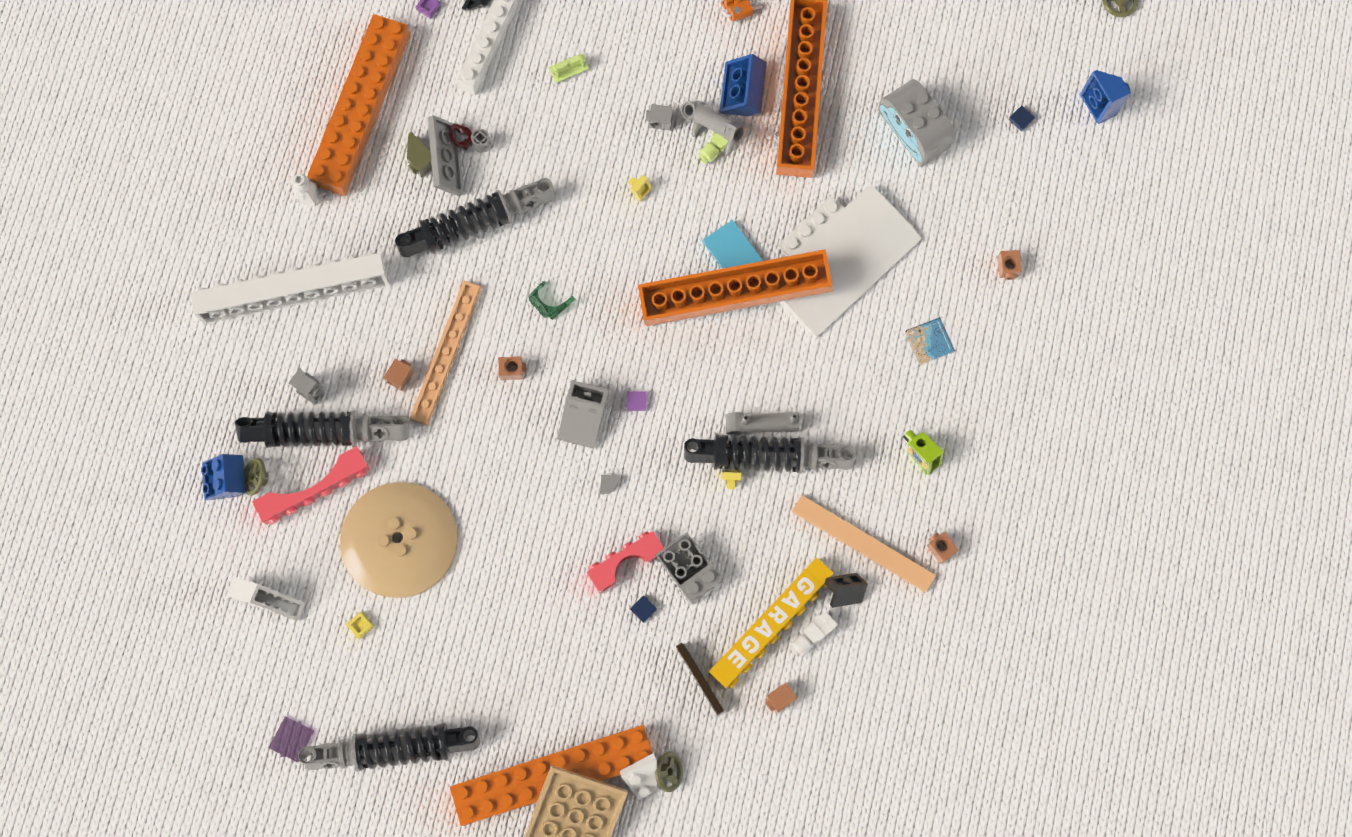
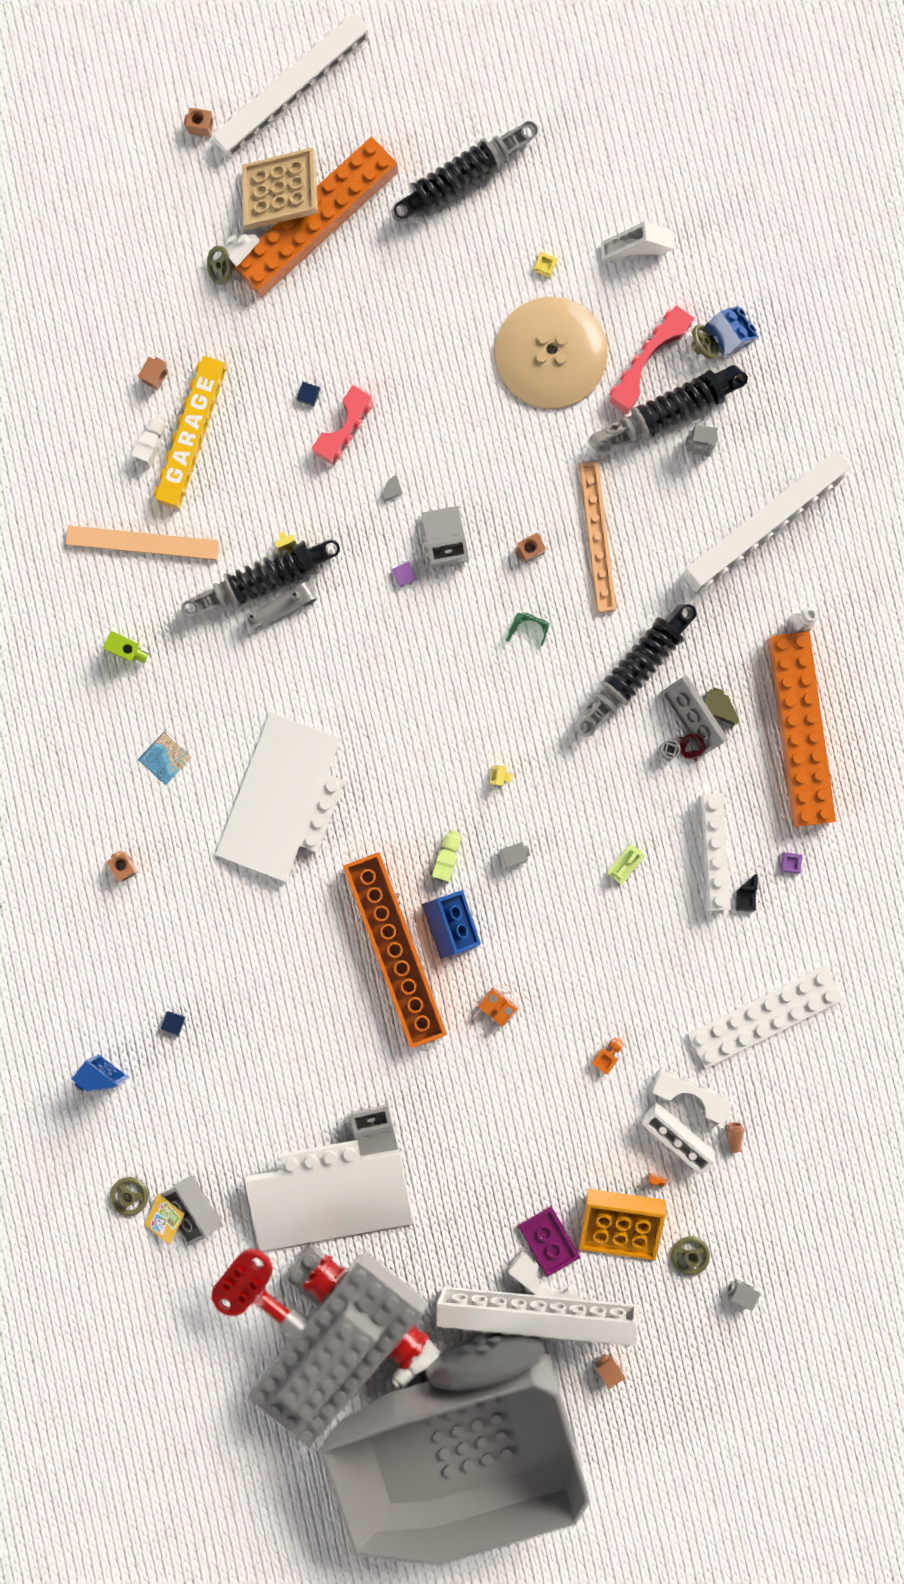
camera: 160 degrees right, 10 degrees up
(291, 738) = (552, 146): clear purple piece -> none
(399, 374) = (628, 494): nougat brick -> none
(688, 568) = (283, 442): light grey slope -> none
(700, 680) = (230, 355): dark brown tile -> none
(714, 121) = (473, 872): light grey piece -> none
(730, 246) = (383, 756): medium azure tile -> none
(735, 287) = (361, 714): orange brick -> none
(846, 589) = (138, 491): black panel -> none
(917, 121) = (269, 964): light grey brick -> none
(941, 556) = (65, 564): nougat brick -> none

